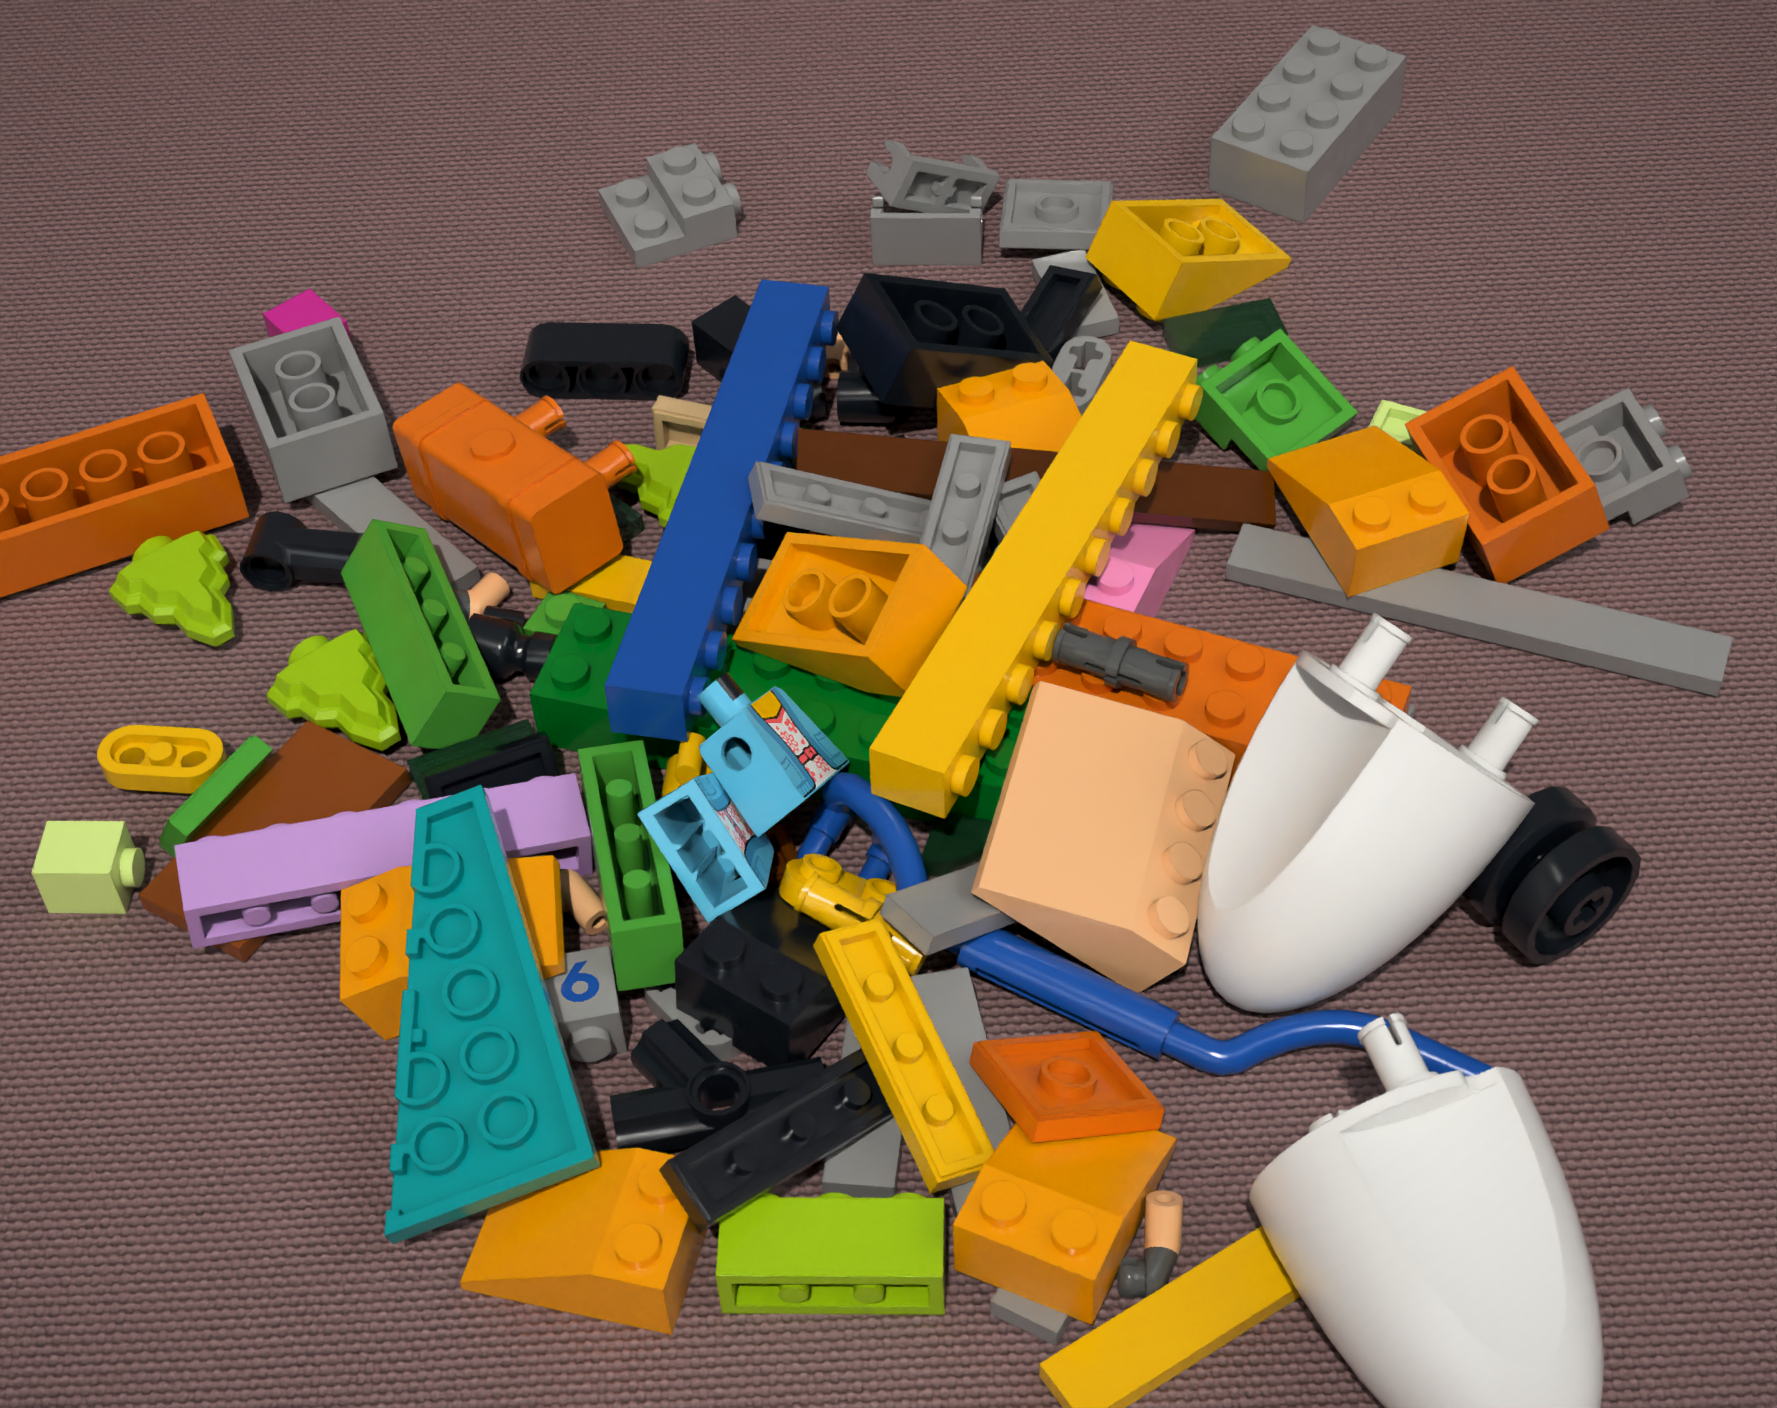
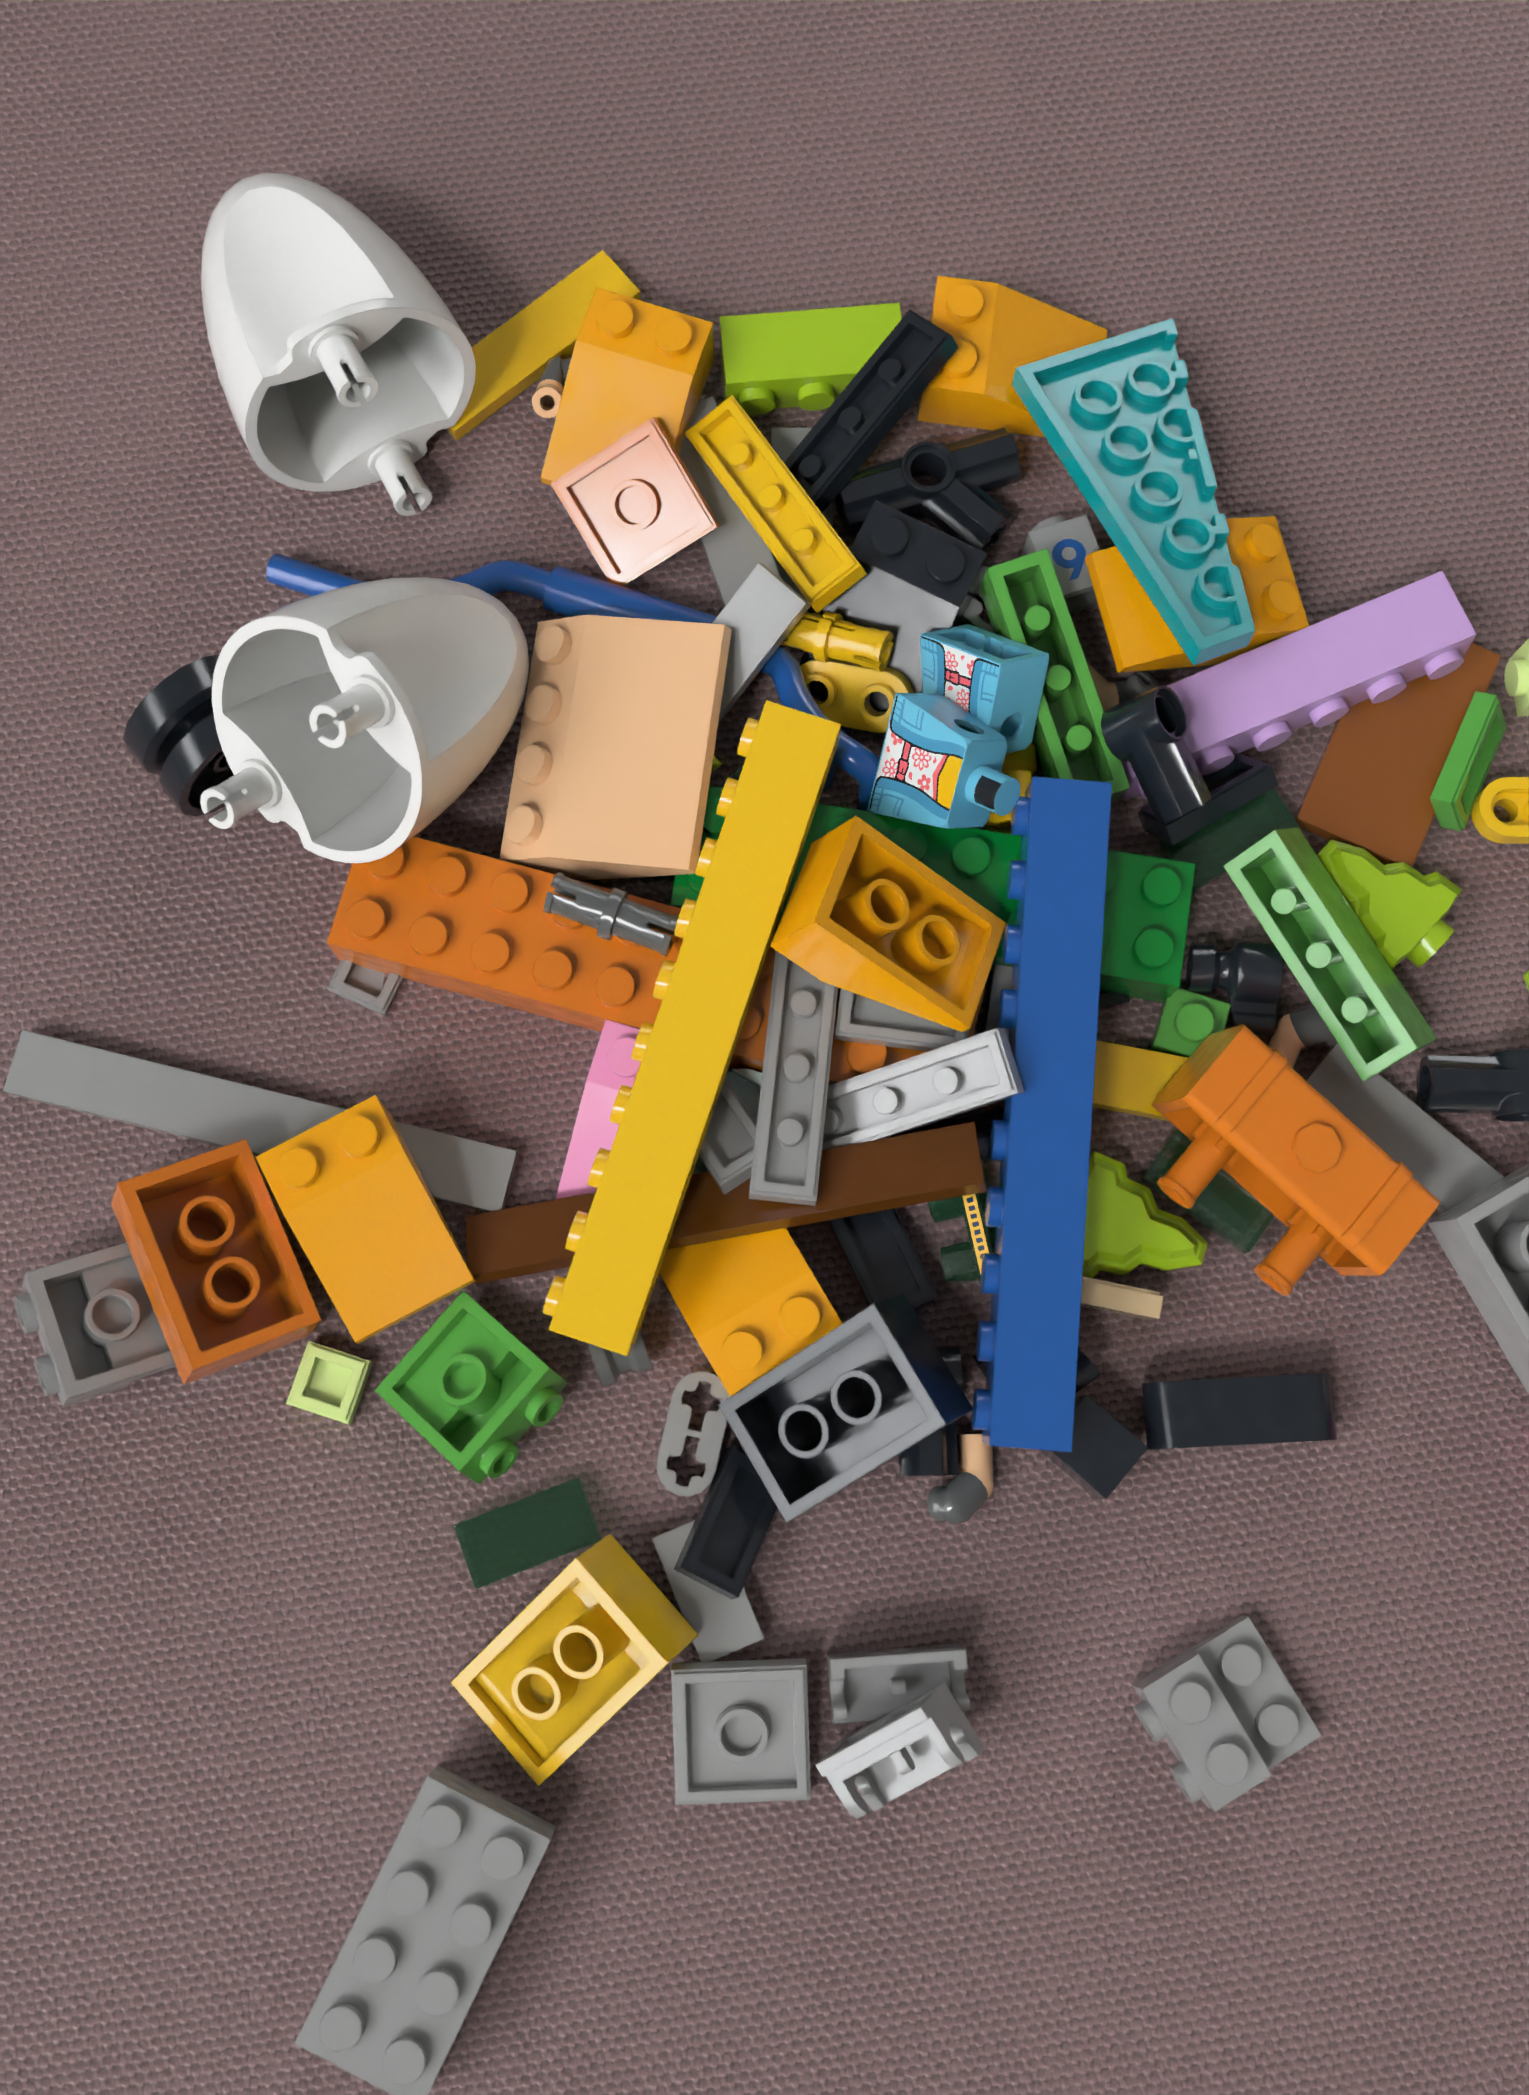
camera: 165 degrees right, 30 degrees up
(542, 764) = (1151, 737): none -> black piece

